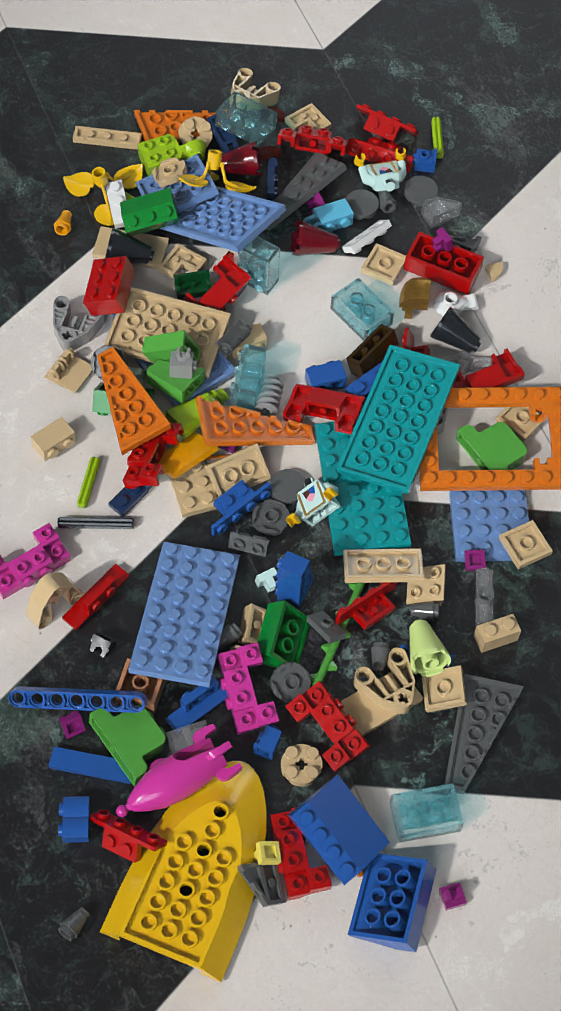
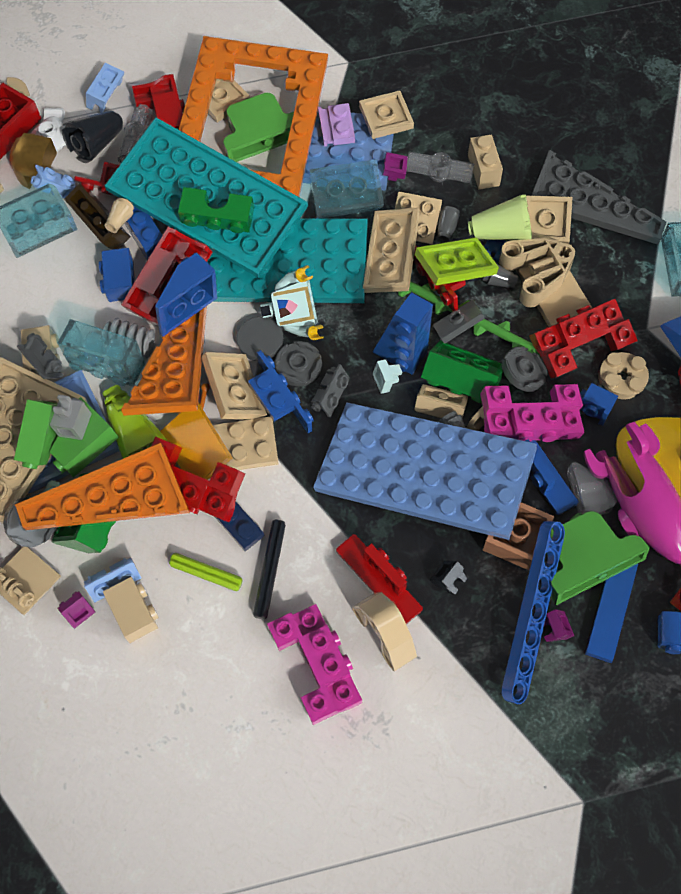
camera: 75 degrees left, 5 degrees up
(50, 406) = (76, 609): none -> magenta tile
(73, 419) = (102, 581): none -> light blue hinge
(303, 418) = (186, 293): none -> blue slope
(367, 360) = (119, 213): none -> tan cone
(376, 612) = (456, 261): none -> lime plate
(379, 410) = (233, 216): none -> green arch
(398, 314) = (46, 175): none -> light blue hinge
(436, 523) = (346, 189): none -> clear light blue brick
(506, 329) = (103, 86): none -> light blue hinge
(507, 508) = (336, 124): none -> lavender plate

